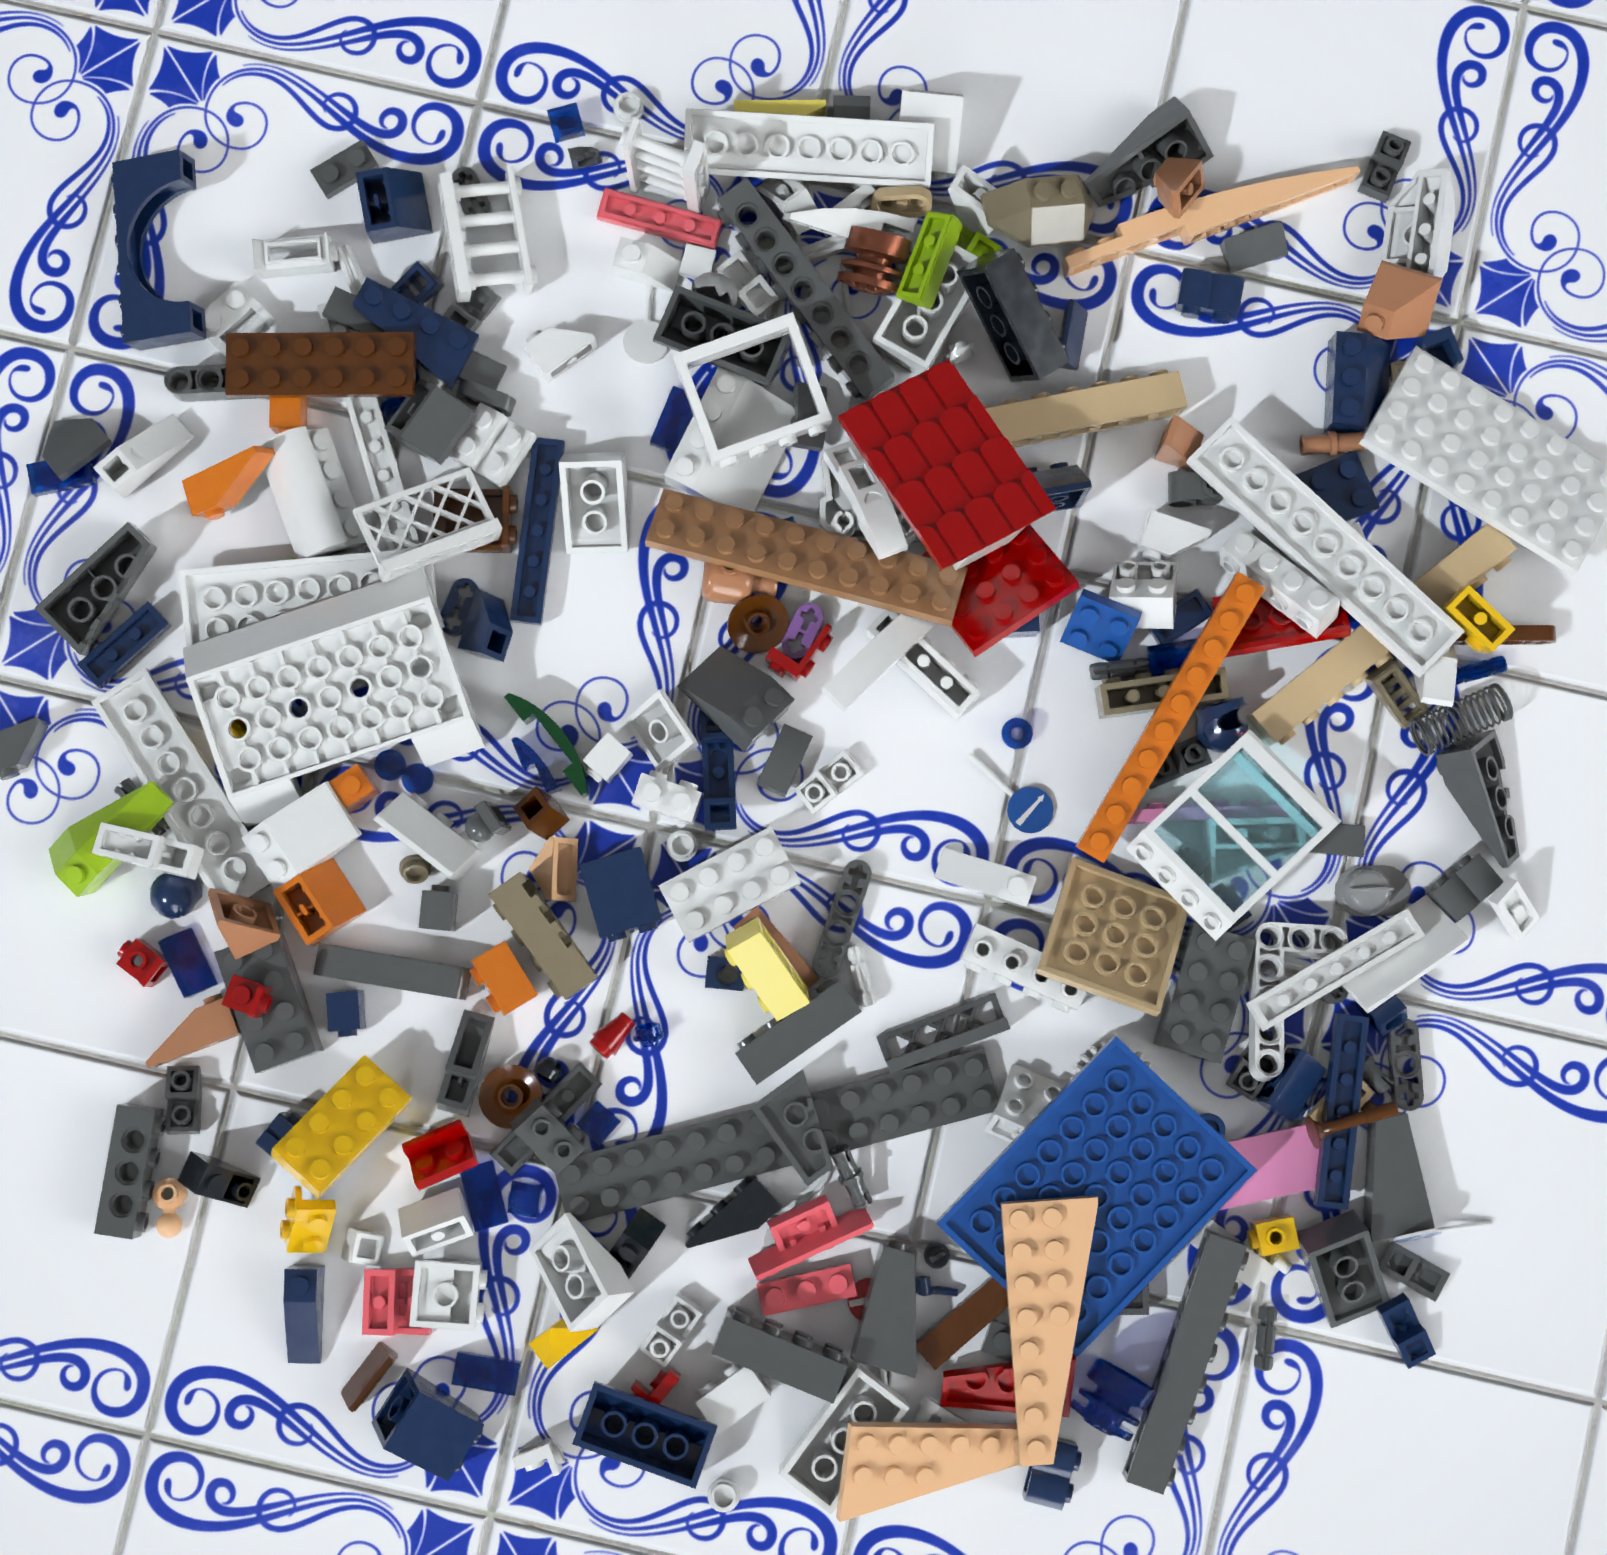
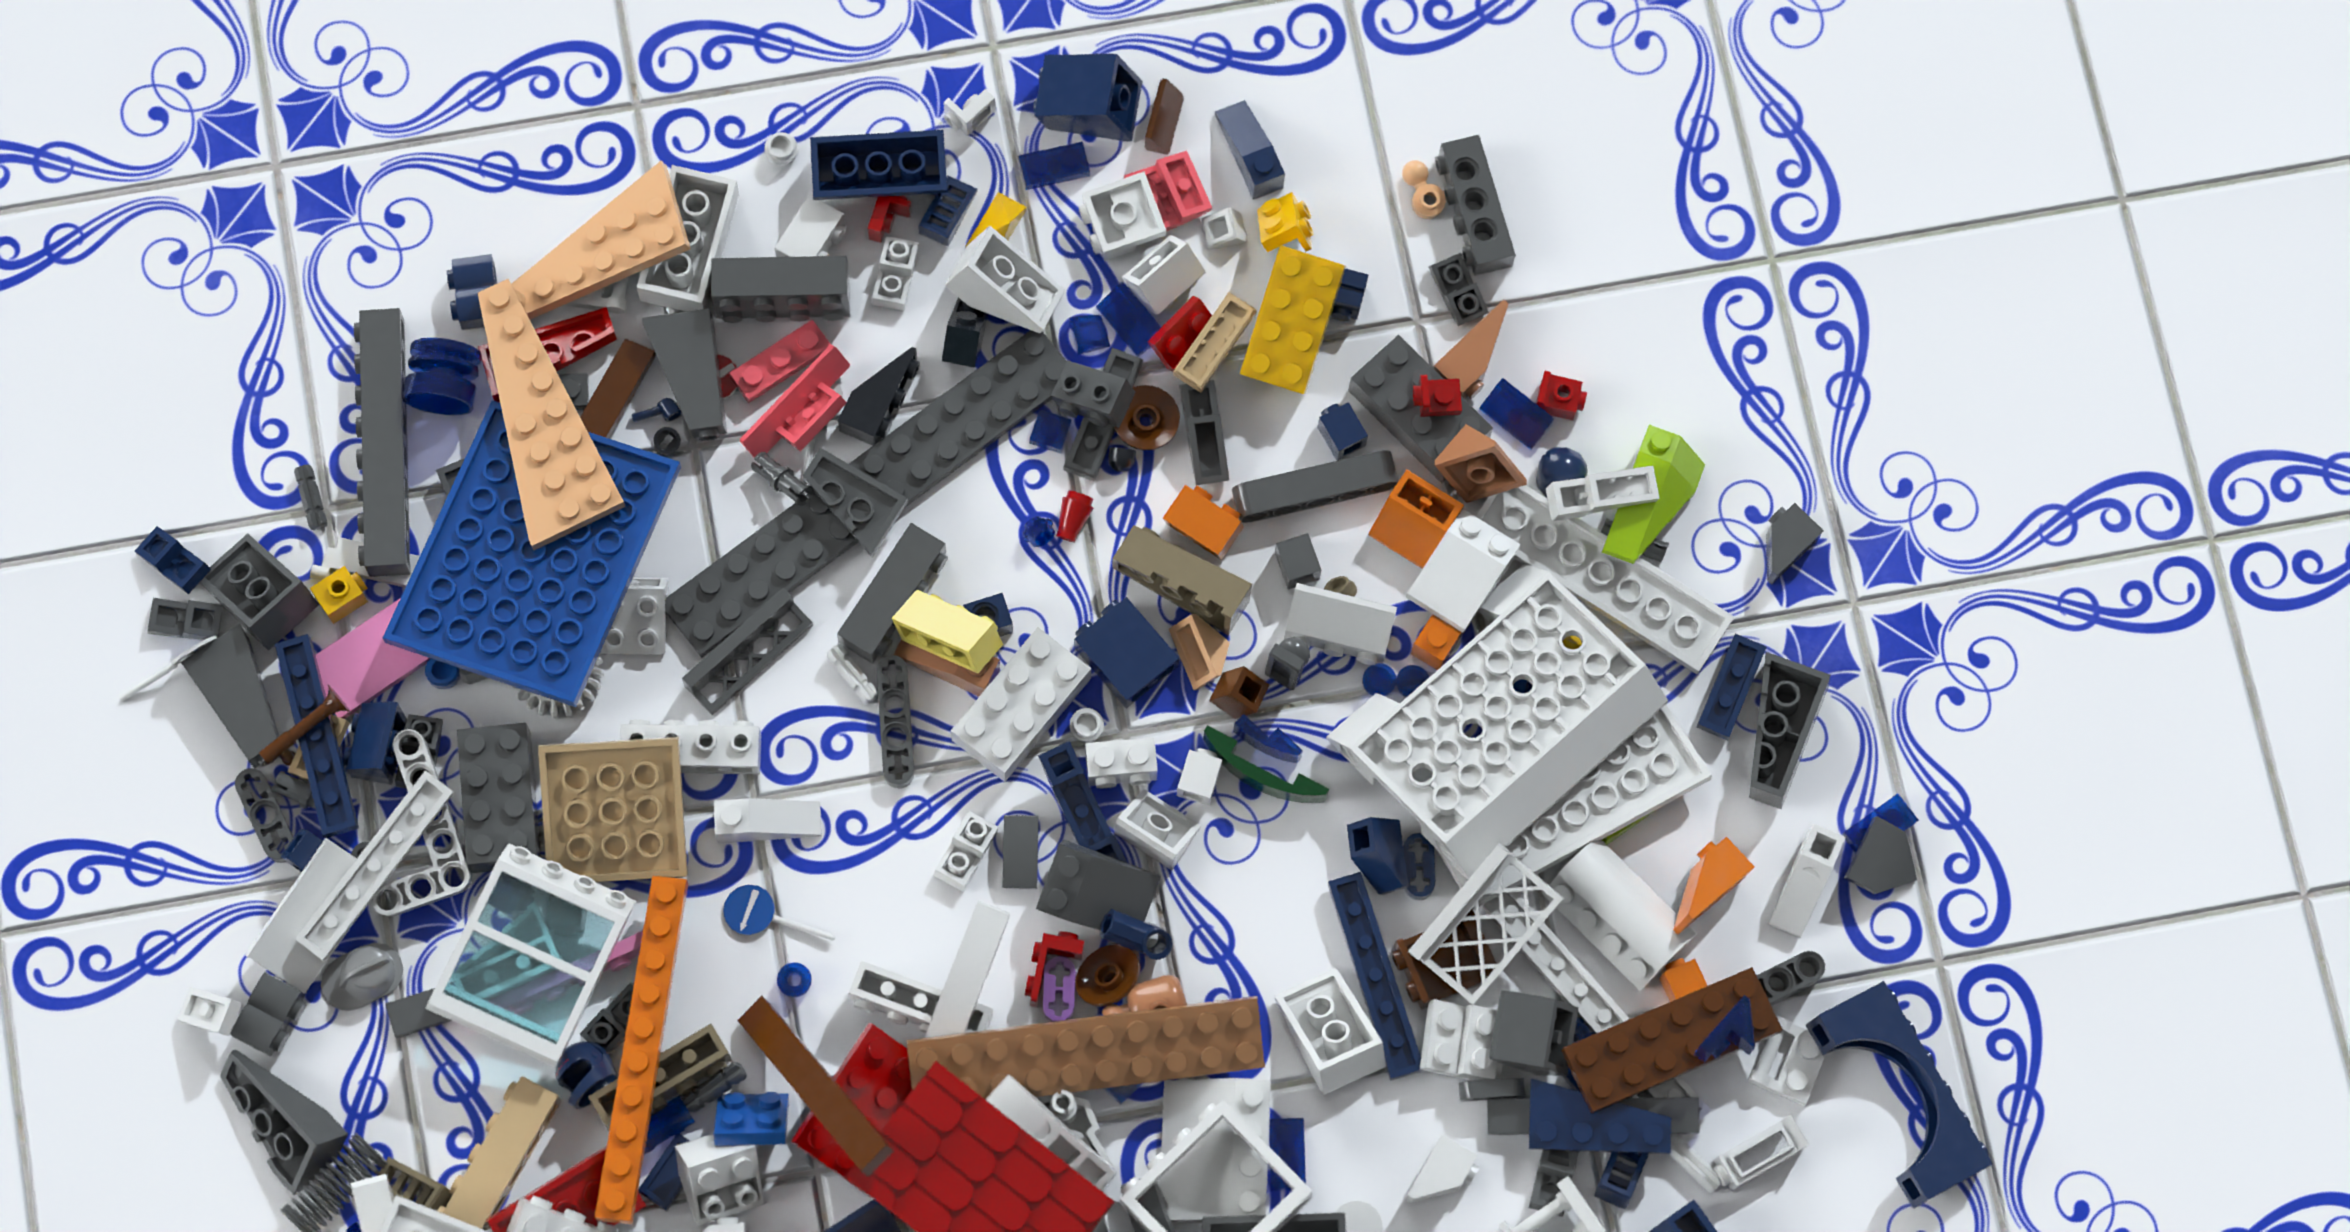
camera: 155 degrees right, 10 degrees down
(218, 1180) = (1389, 230): black slope -> none
(263, 346) = (1736, 1026): none -> clear blue slope
(419, 1135) = (1214, 342): none -> tan plate
(618, 1352) = (936, 232): none -> dark blue slope
(718, 643) = (1134, 934): none -> dark blue piece
(1044, 610) = (815, 1086): none -> reddish brown tile

